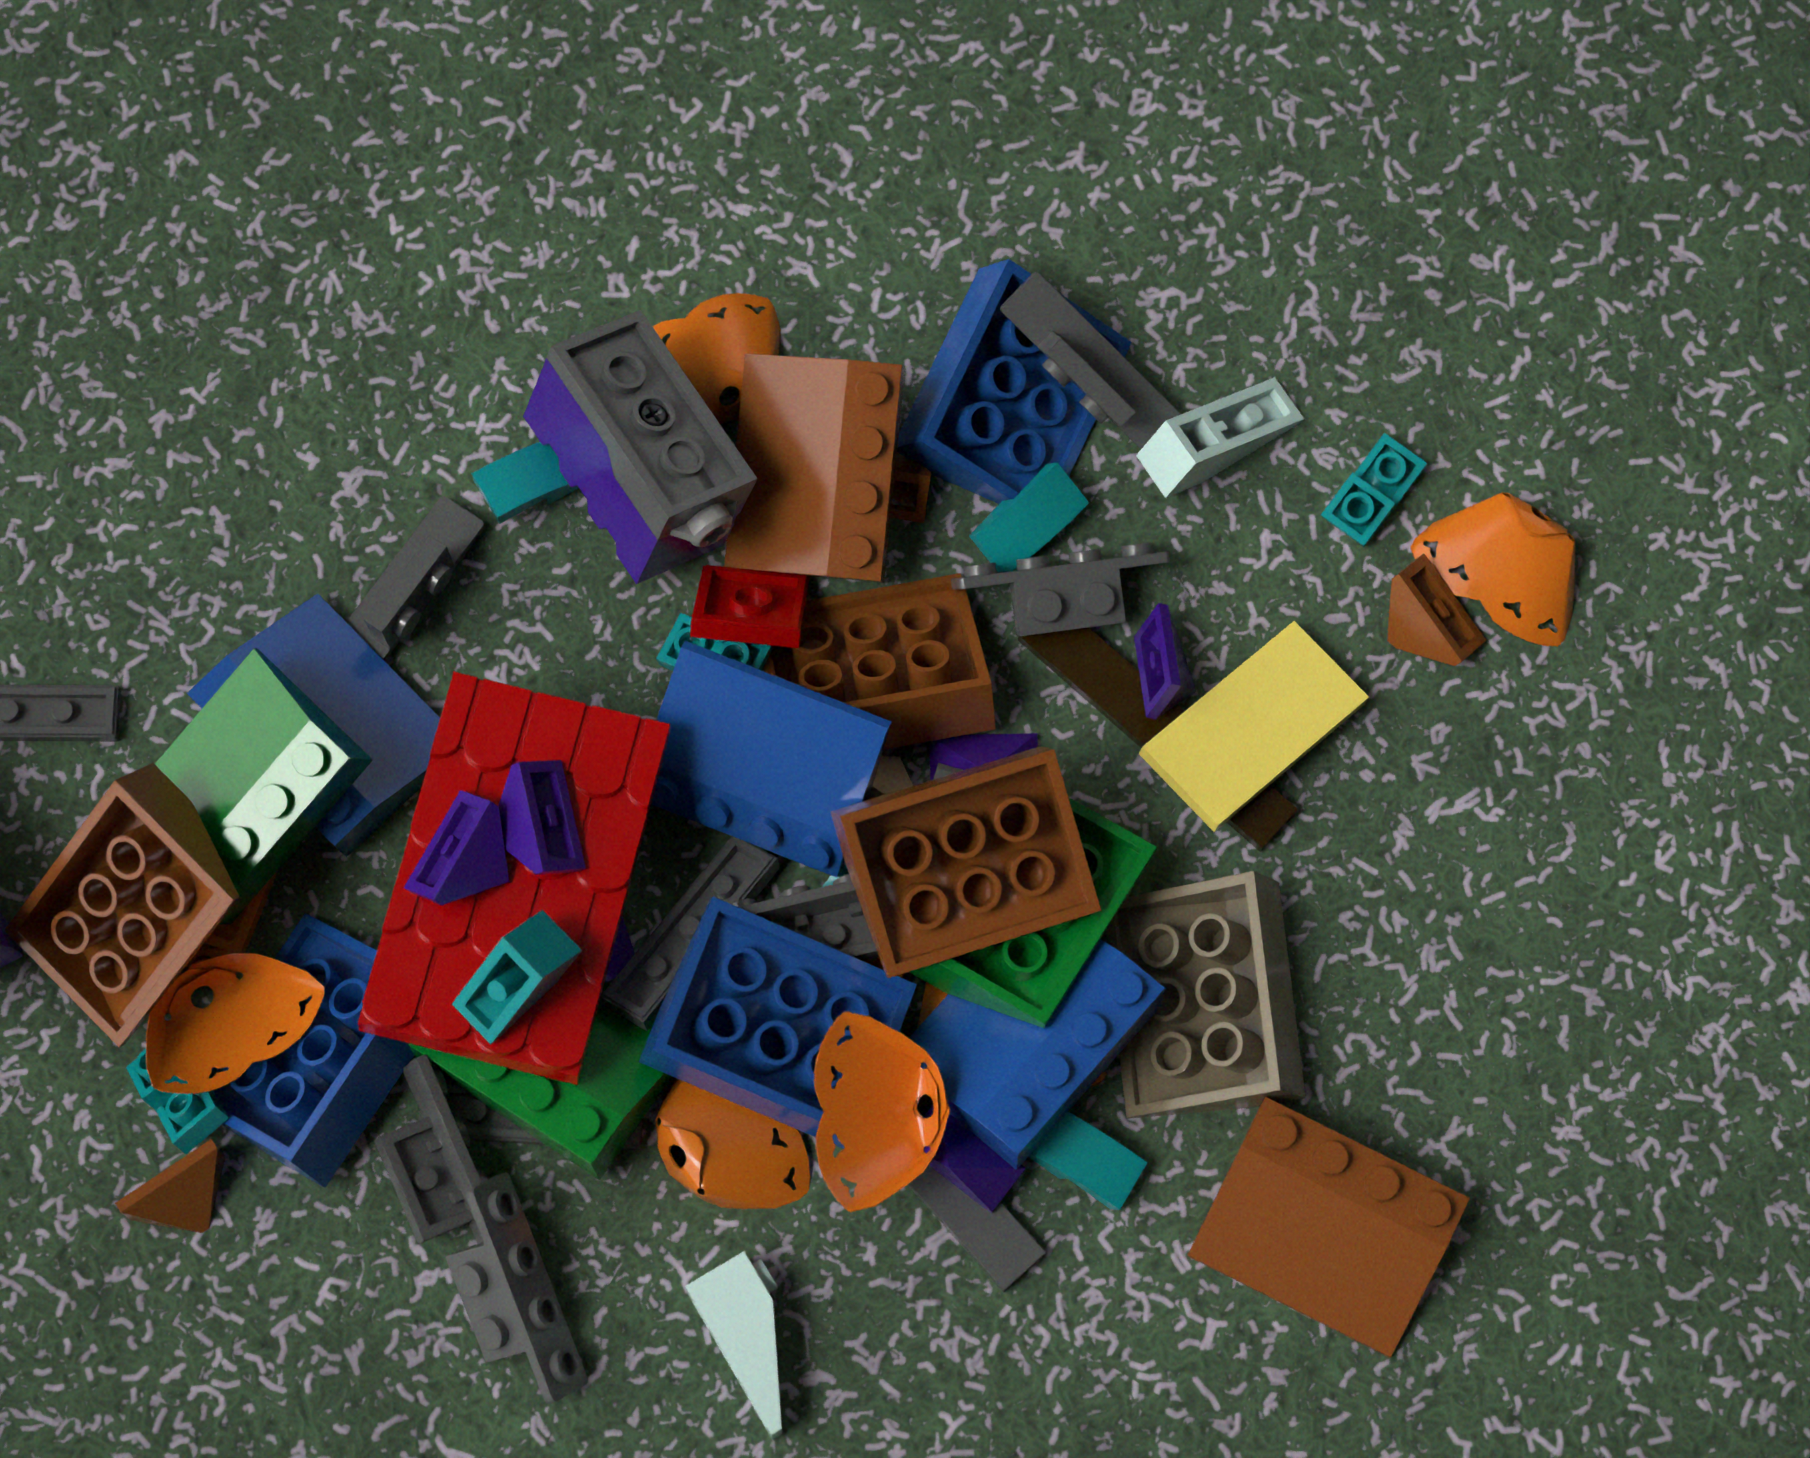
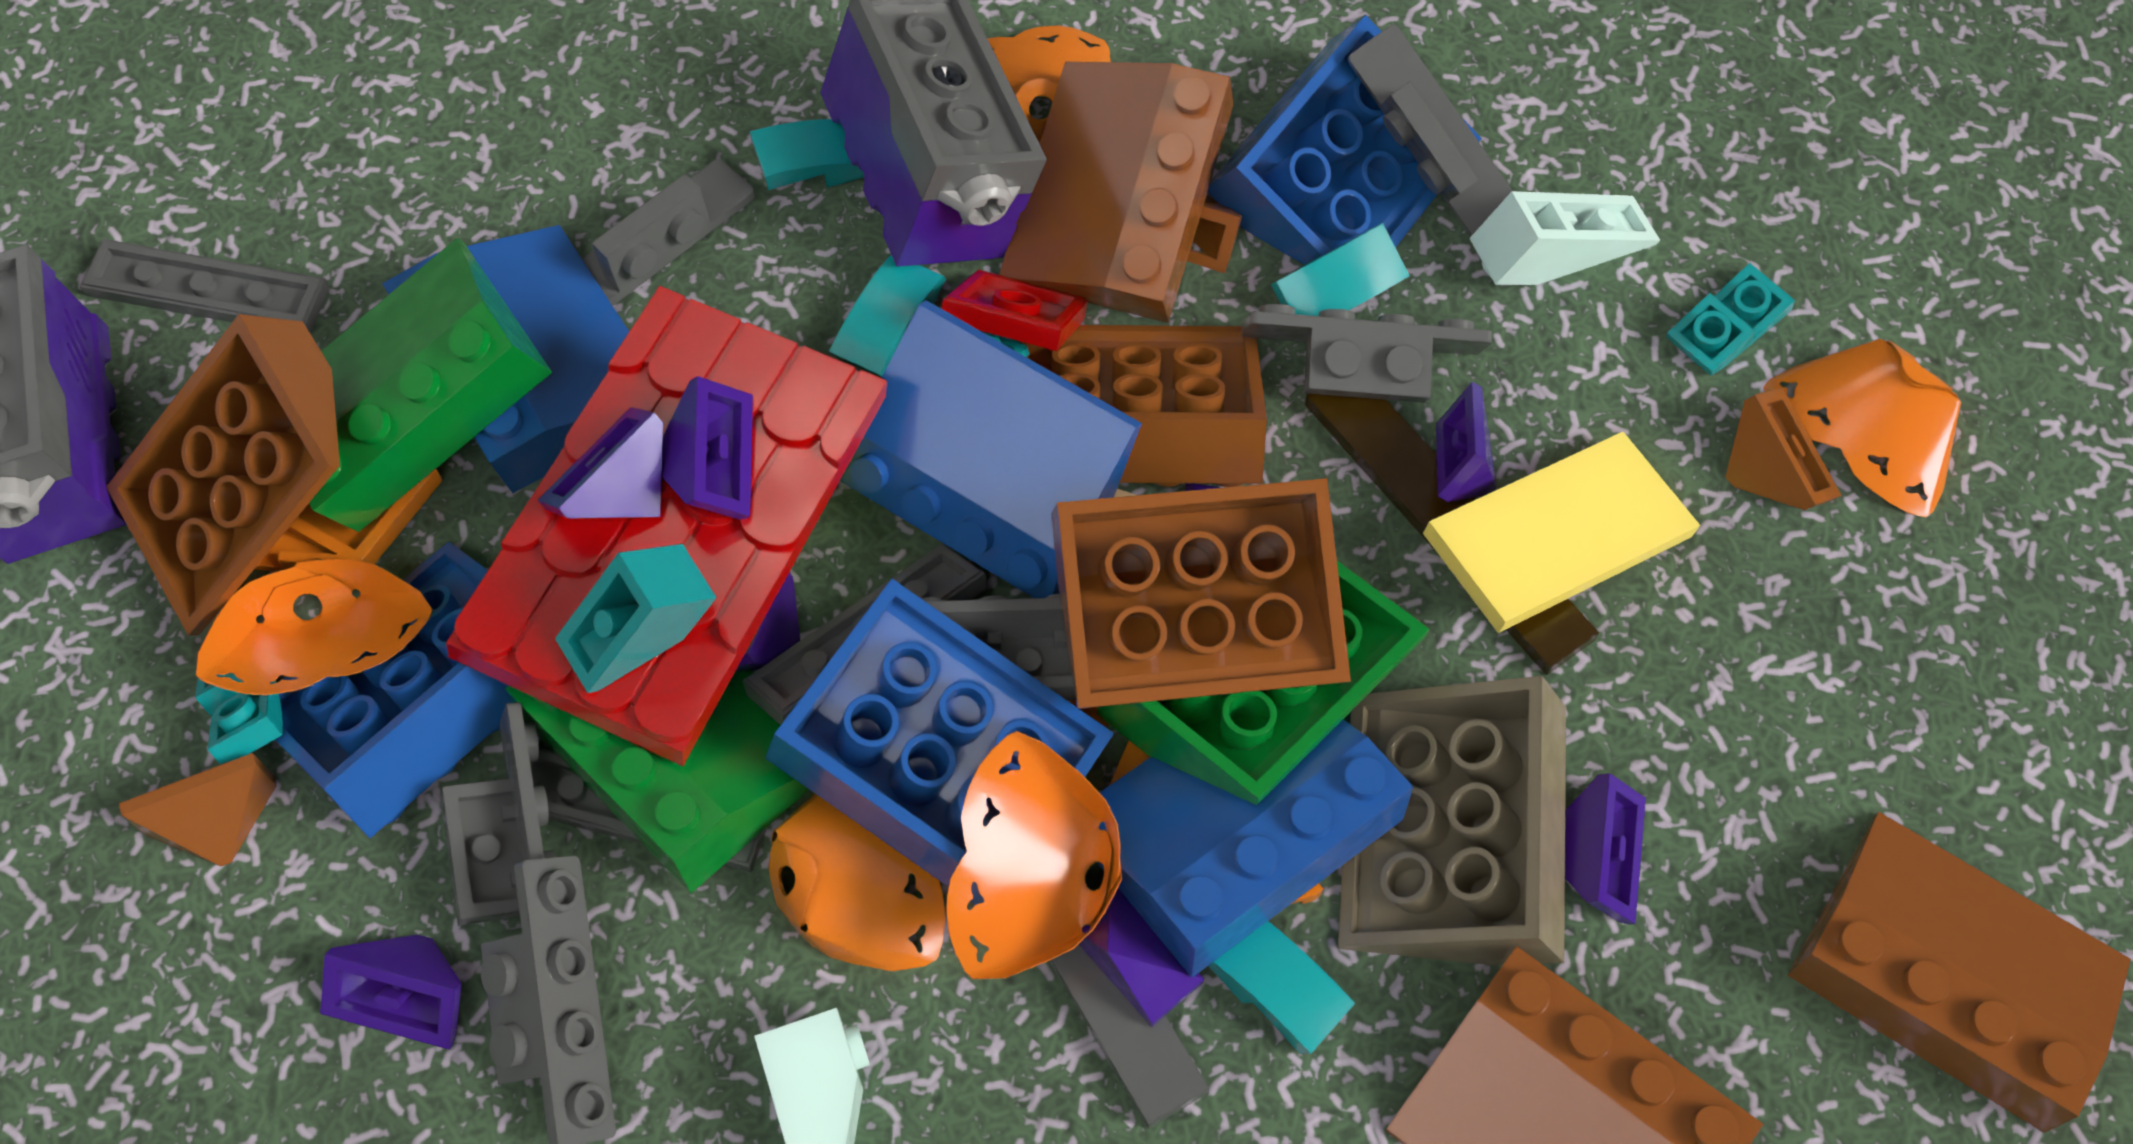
camera: 15 degrees right, 10 degrees down
(381, 1303) = (394, 988): none -> dark purple slope
(635, 629) = (883, 314): none -> teal slope
(1327, 994) = (1606, 846): none -> dark purple slope
(1617, 1038) = (1966, 974): none -> dark orange slope

